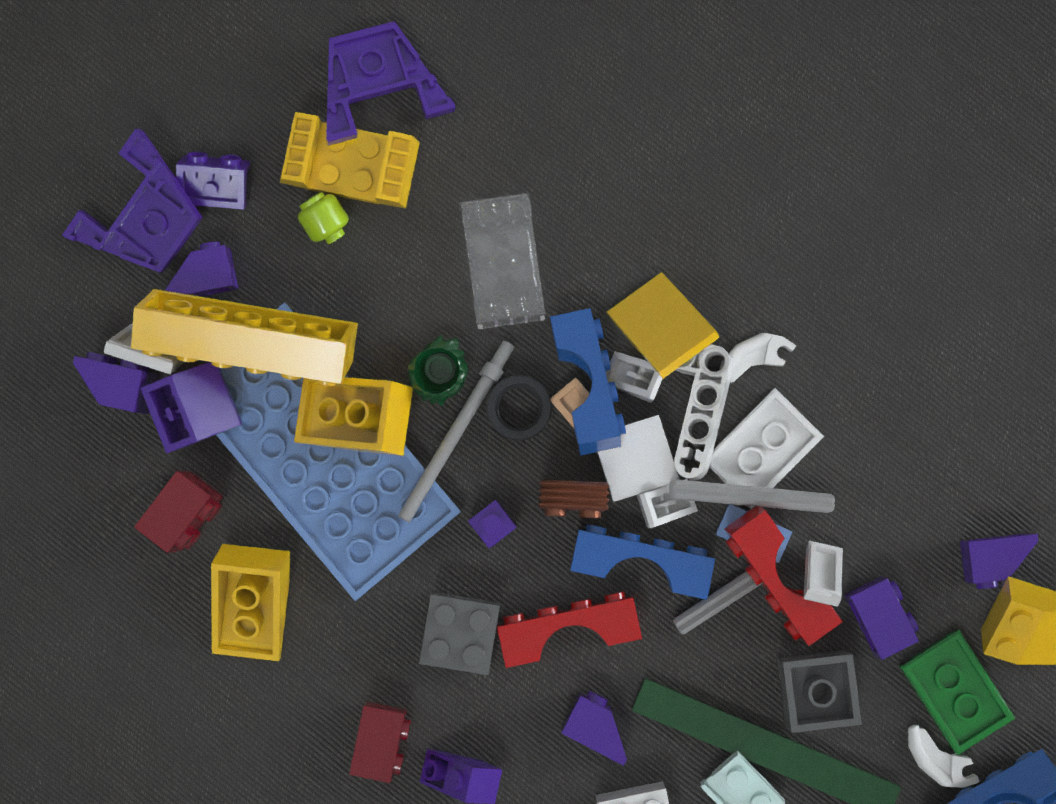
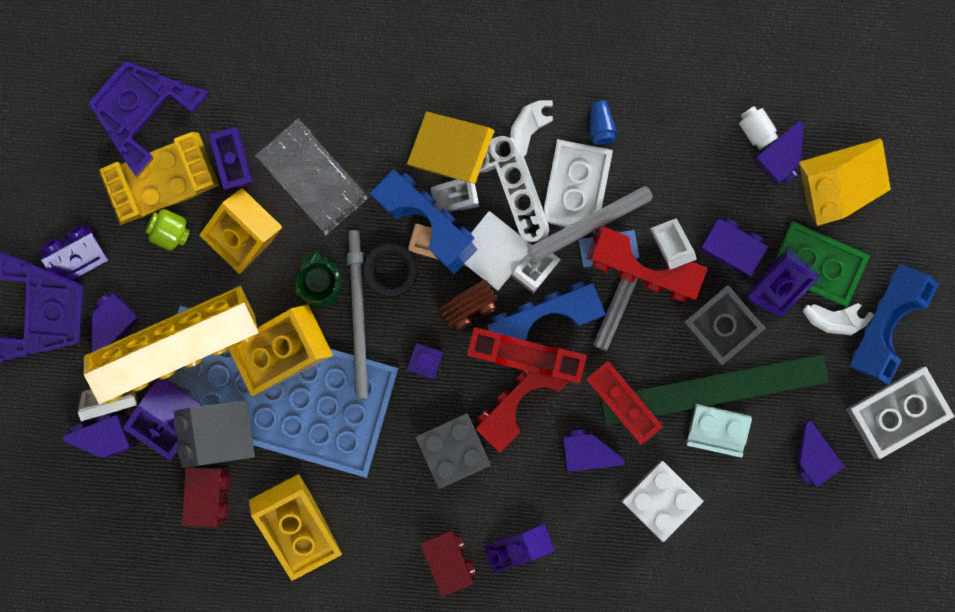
camera: 35 degrees left, 0 degrees up
(227, 455) = (213, 433): none -> dark grey brick
(395, 267) = (240, 230): none -> yellow slope
(433, 190) = (231, 159): none -> dark purple brick
(599, 590) = (526, 355): none -> red arch
(665, 702) = (624, 403): none -> red plate
(830, 402) = (601, 123): none -> blue cone
(908, 687) = (782, 283): none -> dark purple slope
(987, 512) = (758, 127): none -> white brick

